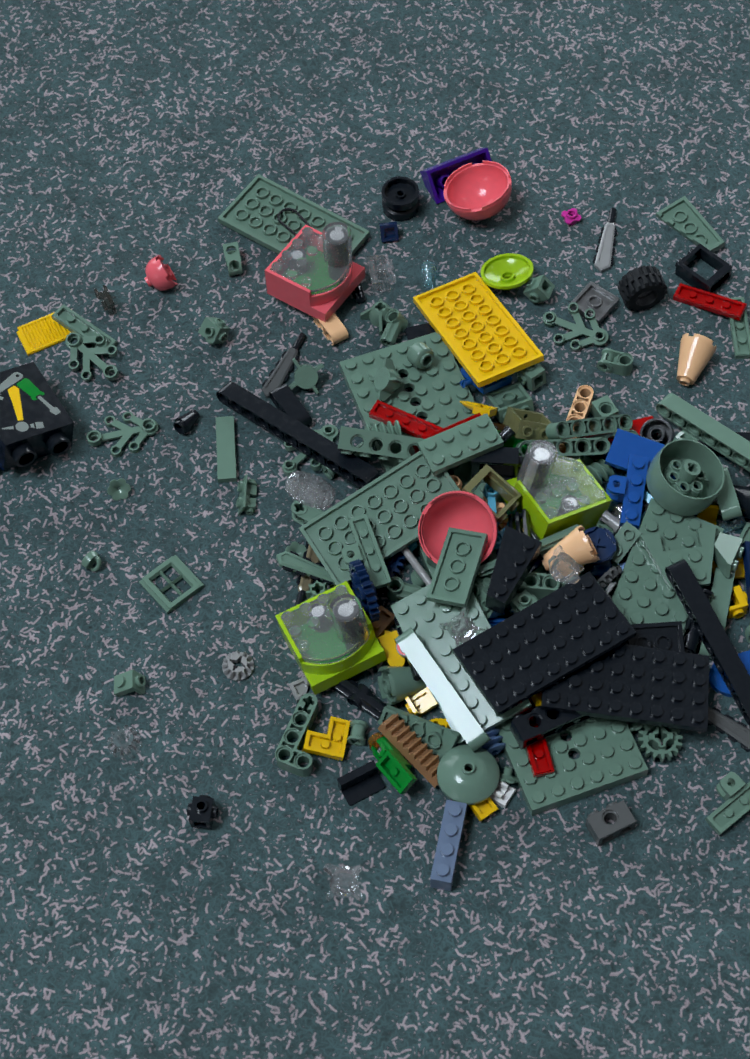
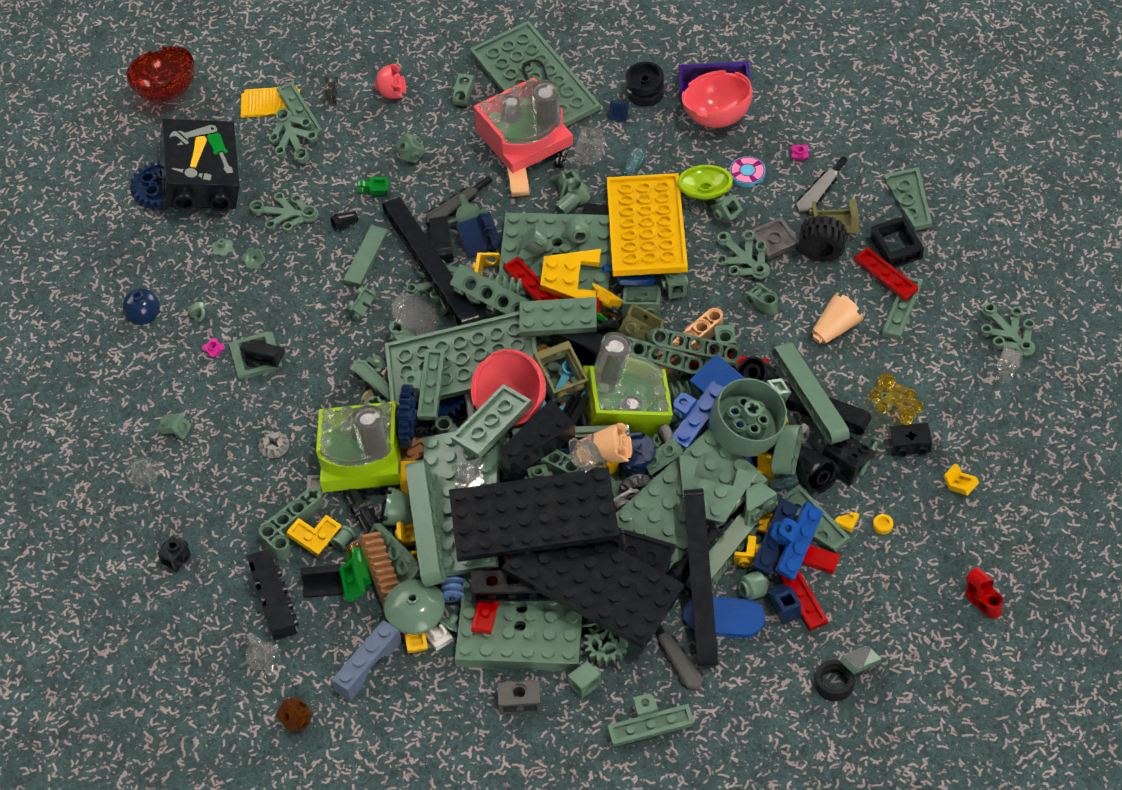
camera: 25 degrees right, 5 degrees down
(31, 576) = (141, 306): none -> dark blue cylinder
(79, 489) = (222, 247): none -> sand green plant
(126, 596) = (213, 352): none -> dark pink plate
(180, 579) = (262, 353): none -> black panel
(199, 377) = (376, 186): none -> green plate
(323, 816) = (272, 594): none -> black wedge
(325, 392) = (479, 235): none -> dark blue hinge
(342, 415) = (481, 261): none -> yellow bracket
(410, 927) = (294, 714): none -> reddish brown brick
(429, 401) = (562, 272): none -> yellow wing
(535, 248) = (747, 171): none -> tile
(650, 256) = (848, 217): none -> olive panel
(660, 781) = (585, 679): none -> sand green brick

